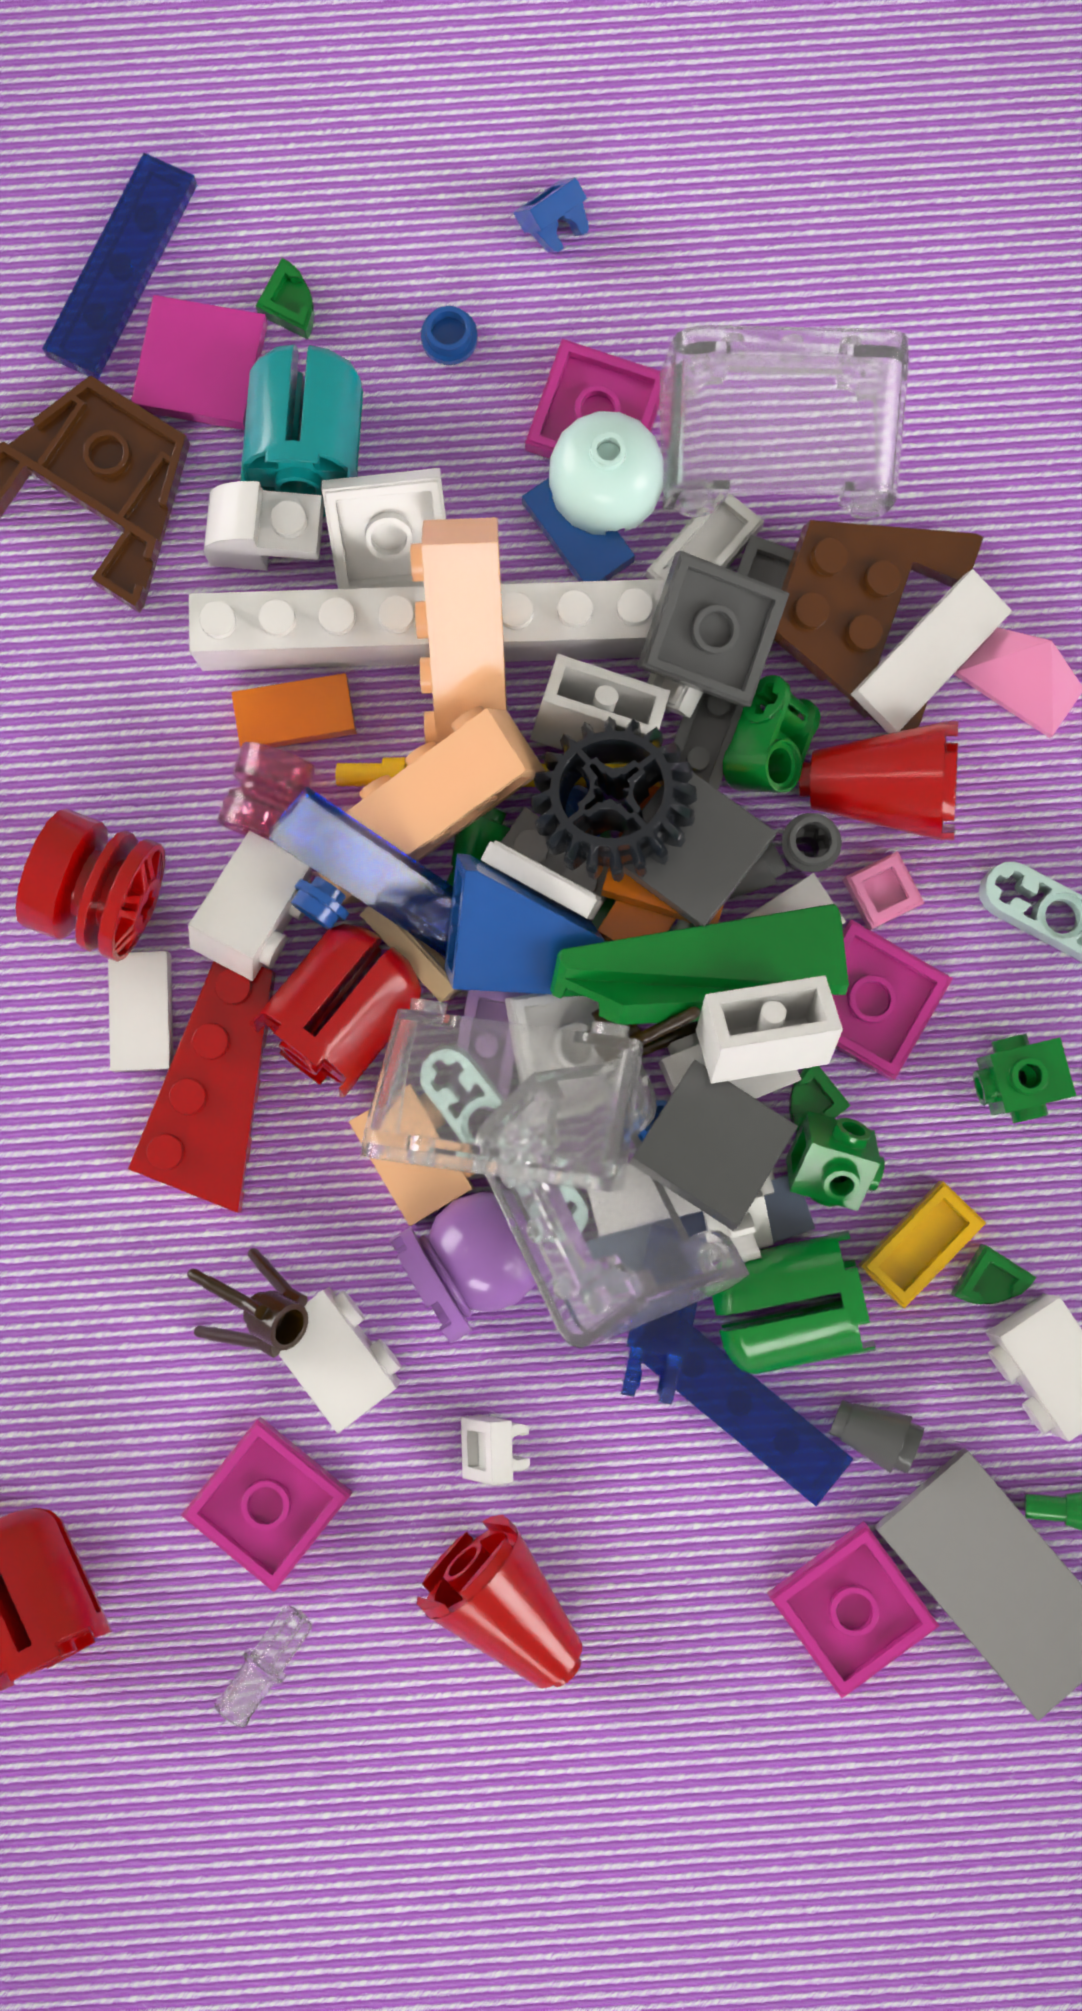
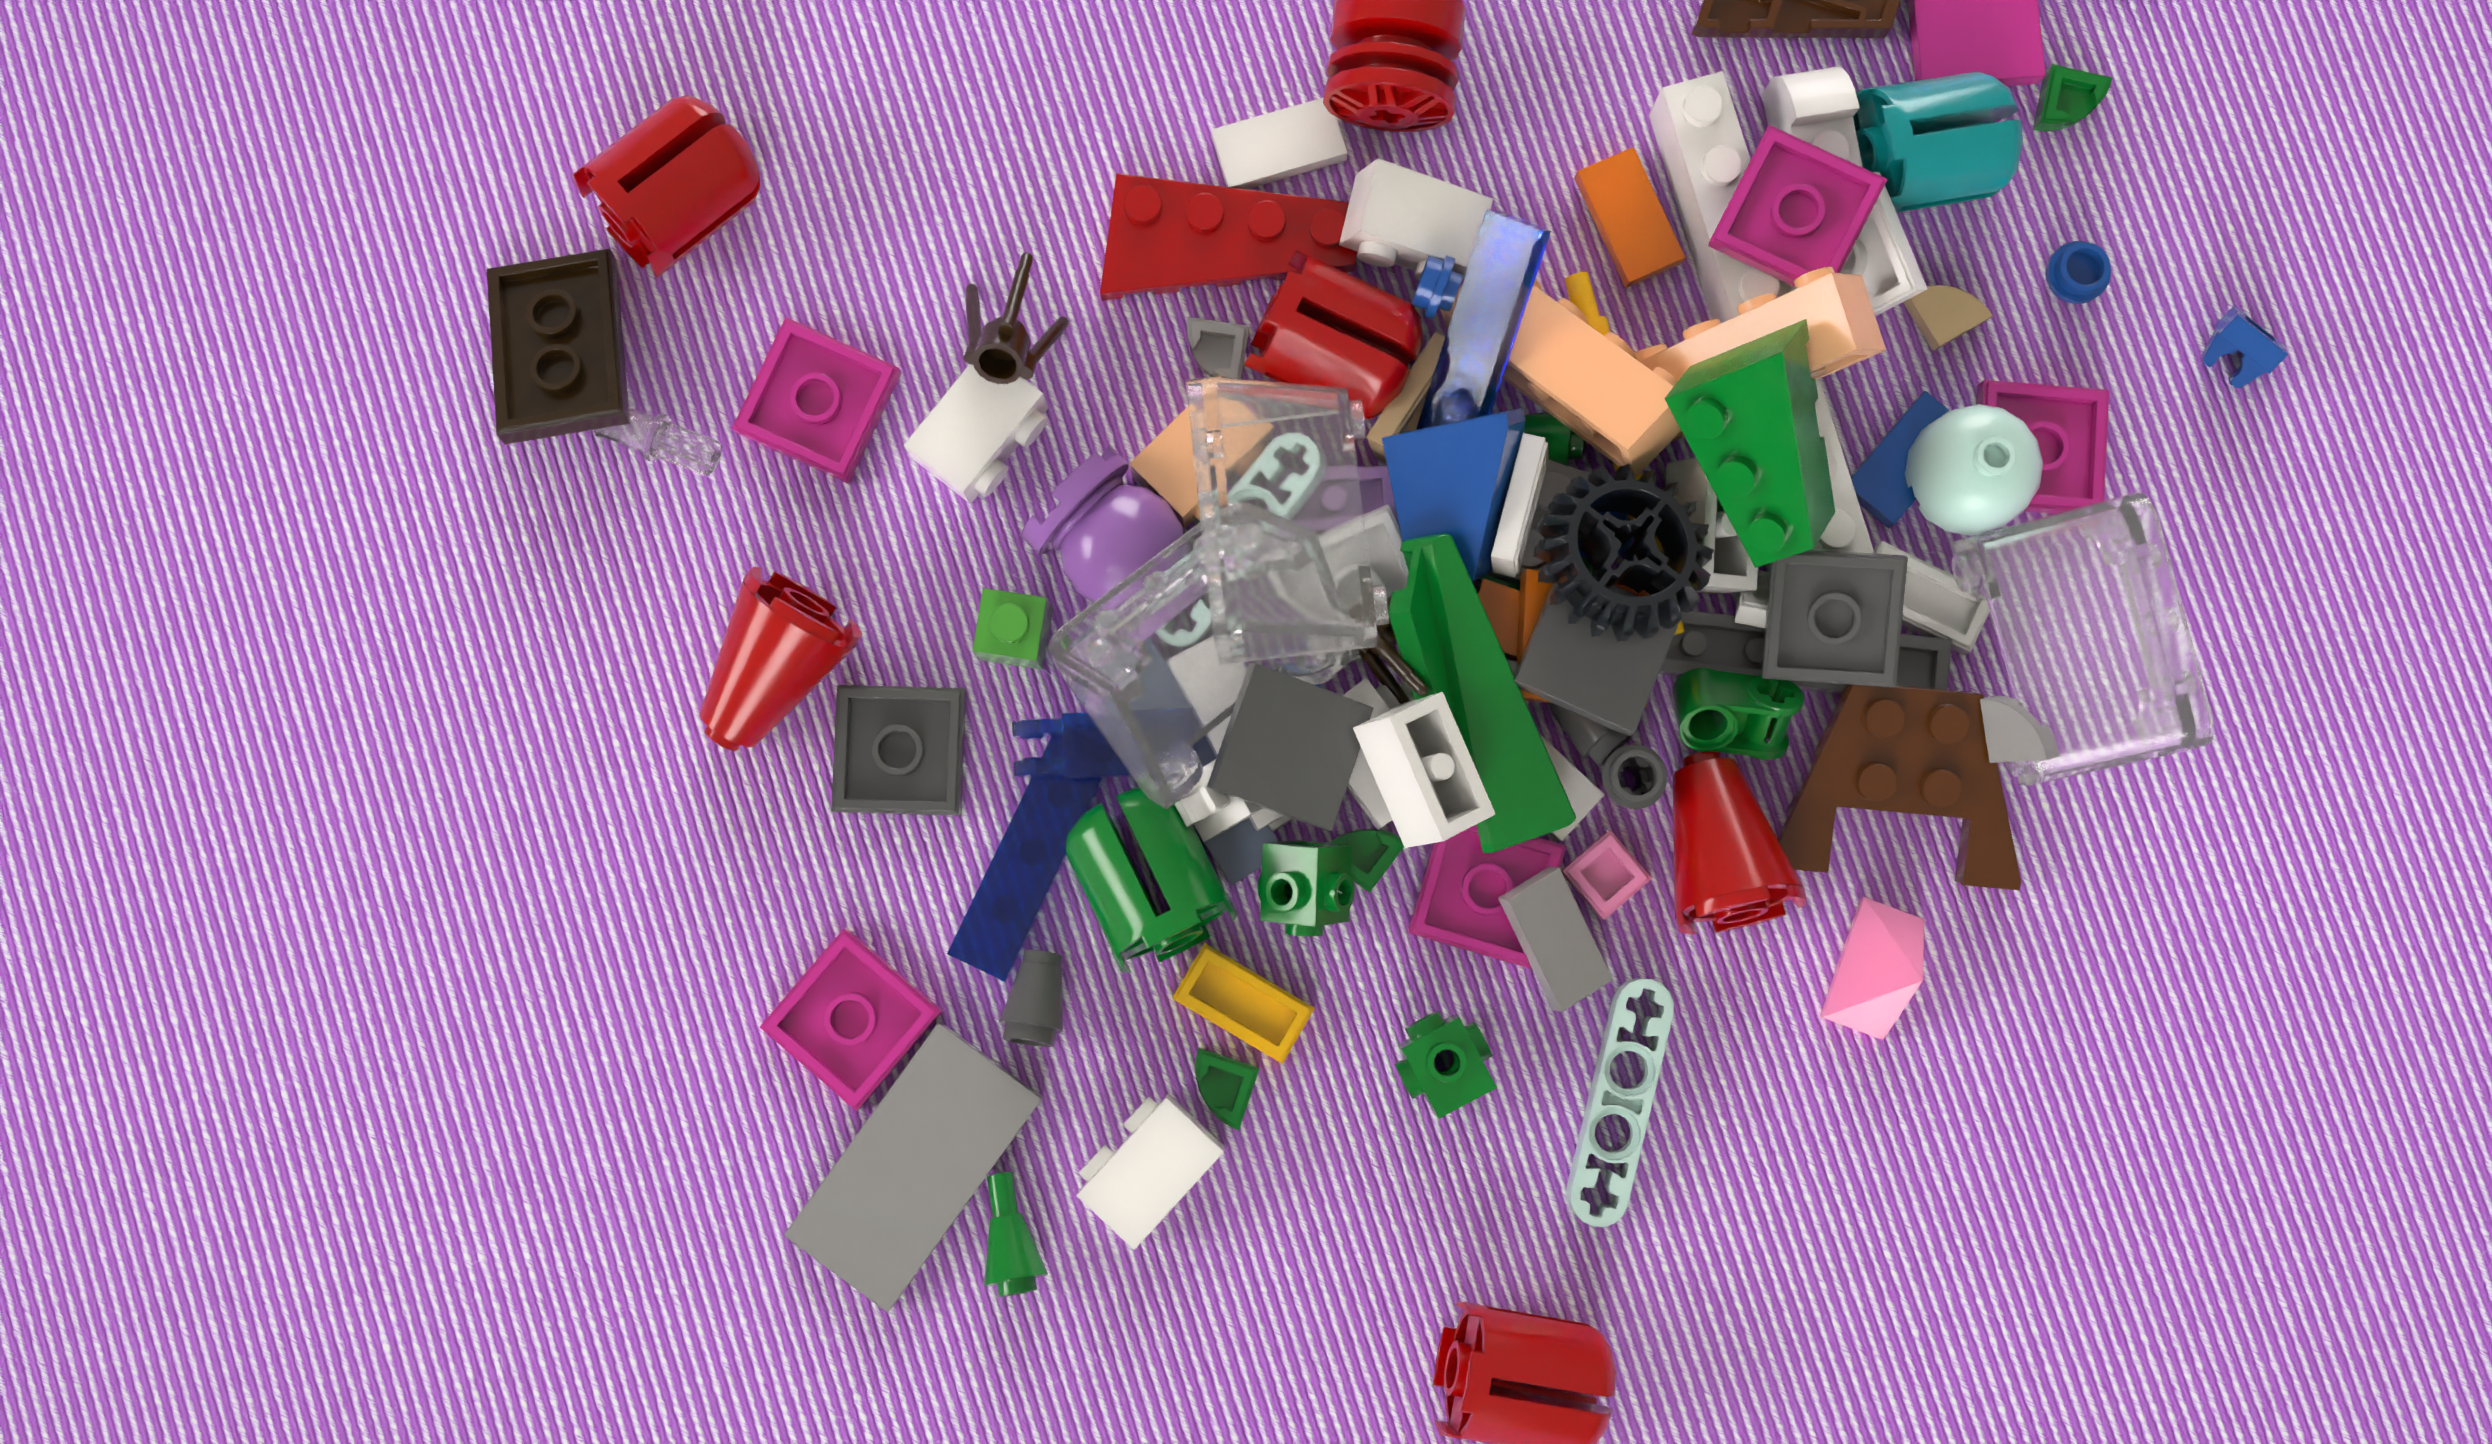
camera: 75 degrees right, 0 degrees up
(152, 1743) = (557, 346): none -> dark brown tile
(268, 787) = (1549, 202): clear pink wheel -> none
(318, 1115) = (1218, 346): none -> light grey tile
(340, 562) = (1796, 208): none -> dark pink tile
(458, 457) = (1946, 313): none -> tan tile
(488, 1449) = (925, 604): white tile -> none
(533, 1372) = (1012, 628): none -> bright green brick
(548, 652) = (1760, 441): none -> green wedge
(616, 1505) = (898, 750): none -> dark grey tile
(853, 502) = (2014, 732): none -> light grey tile
(931, 652) = (1876, 861): white tile -> none
(933, 950) = (1555, 938): none -> light grey tile

